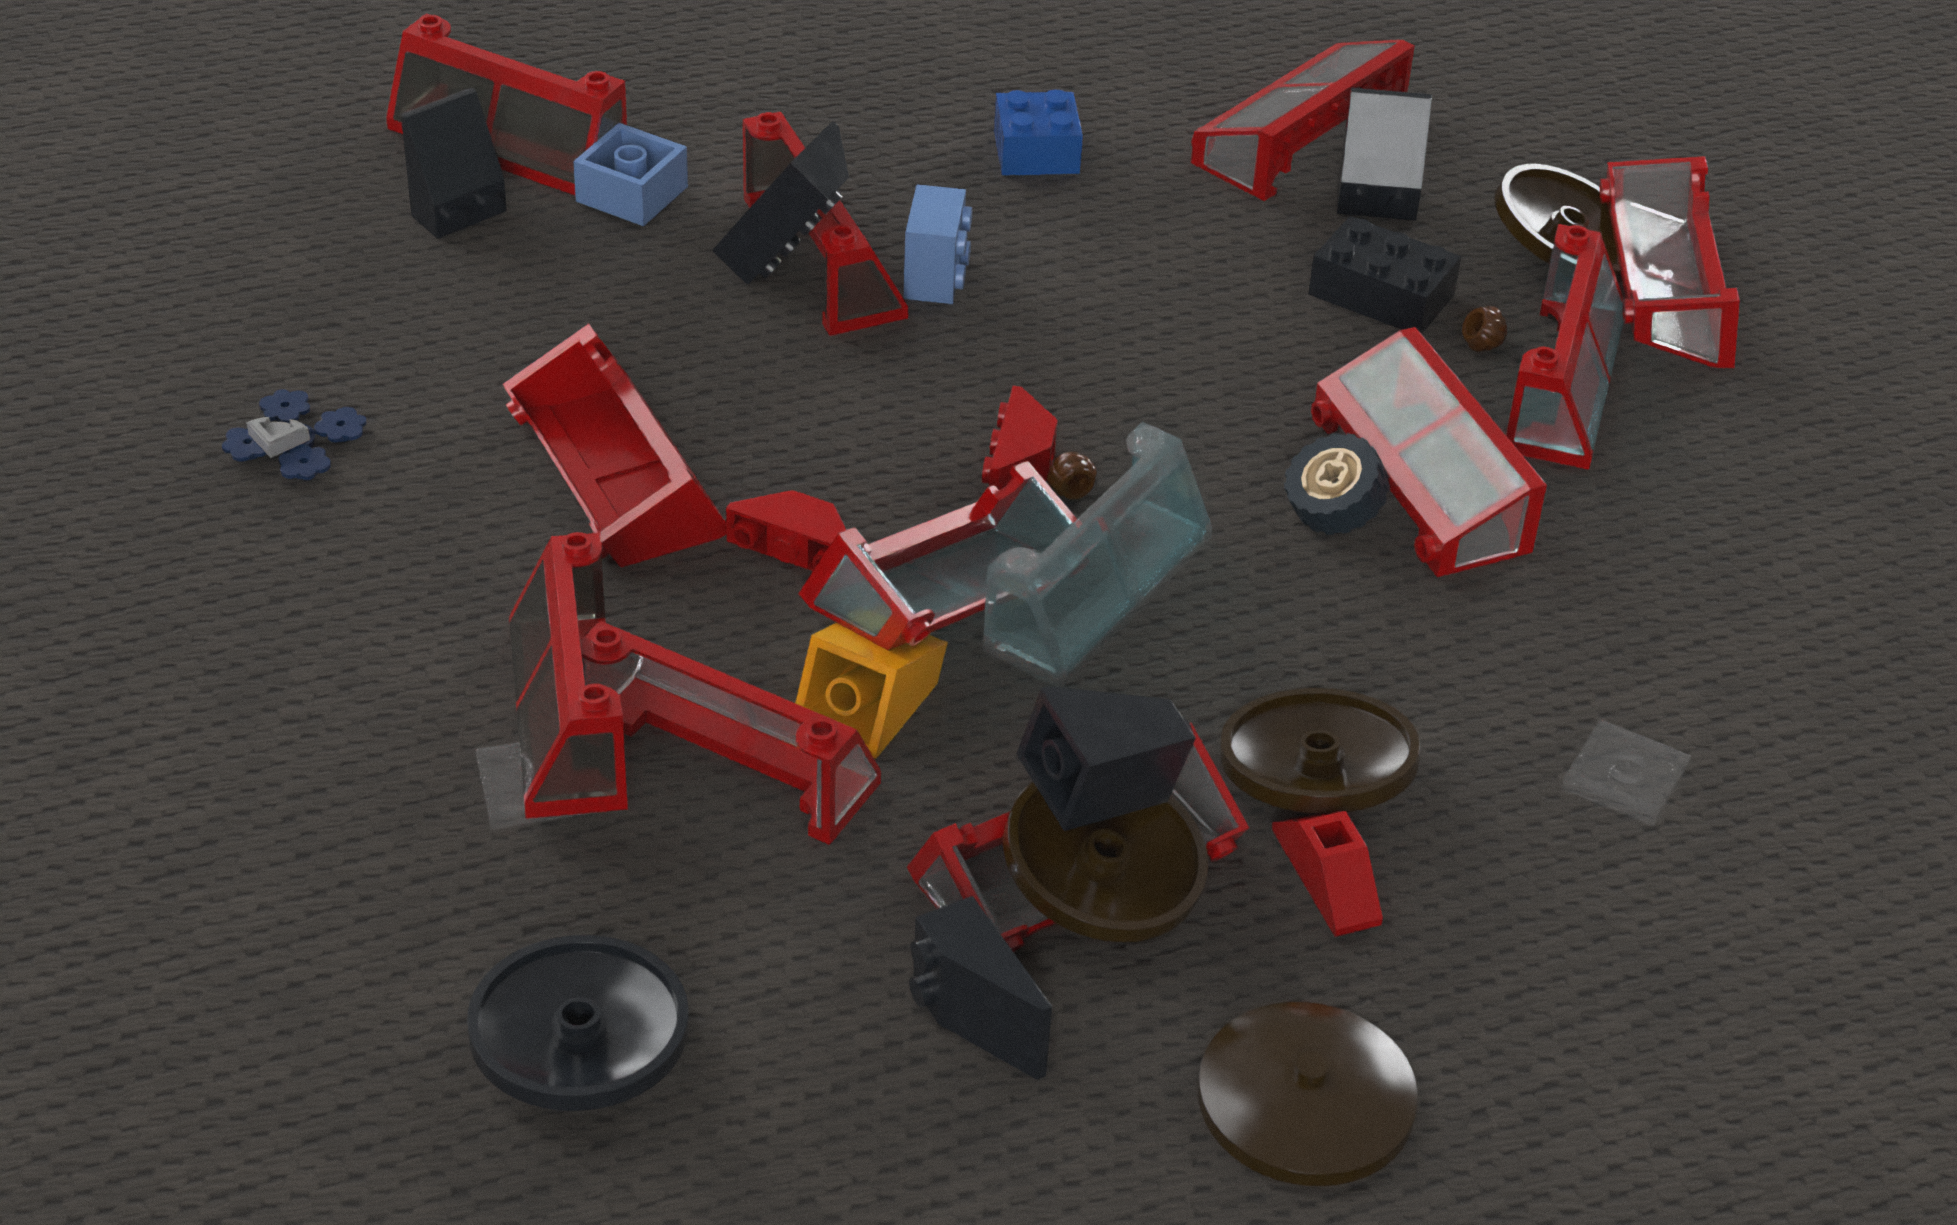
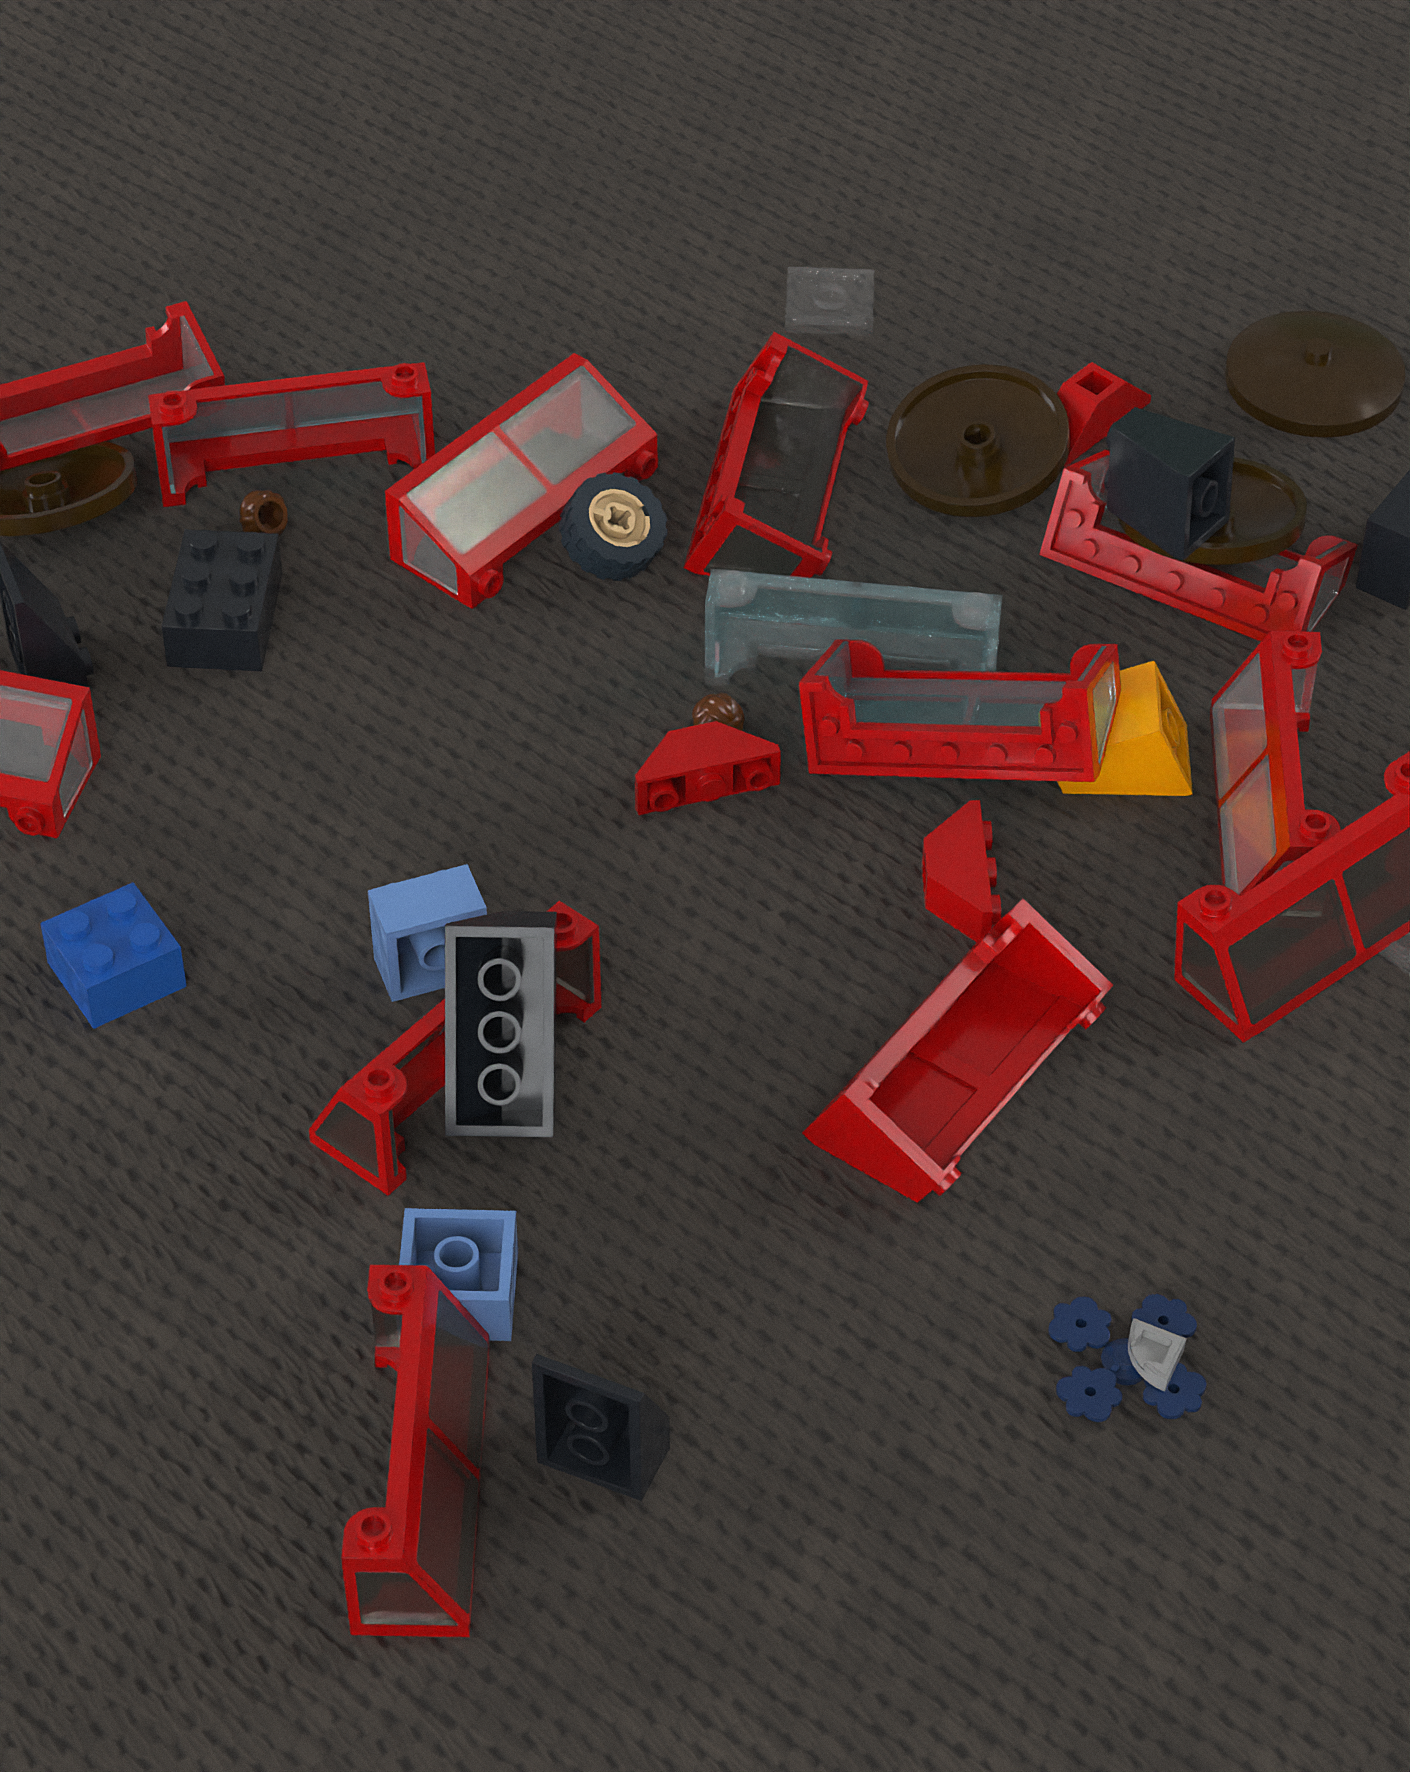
camera: 115 degrees left, 5 degrees up
(1365, 618) = (777, 465): none -> clear smoke windscreen

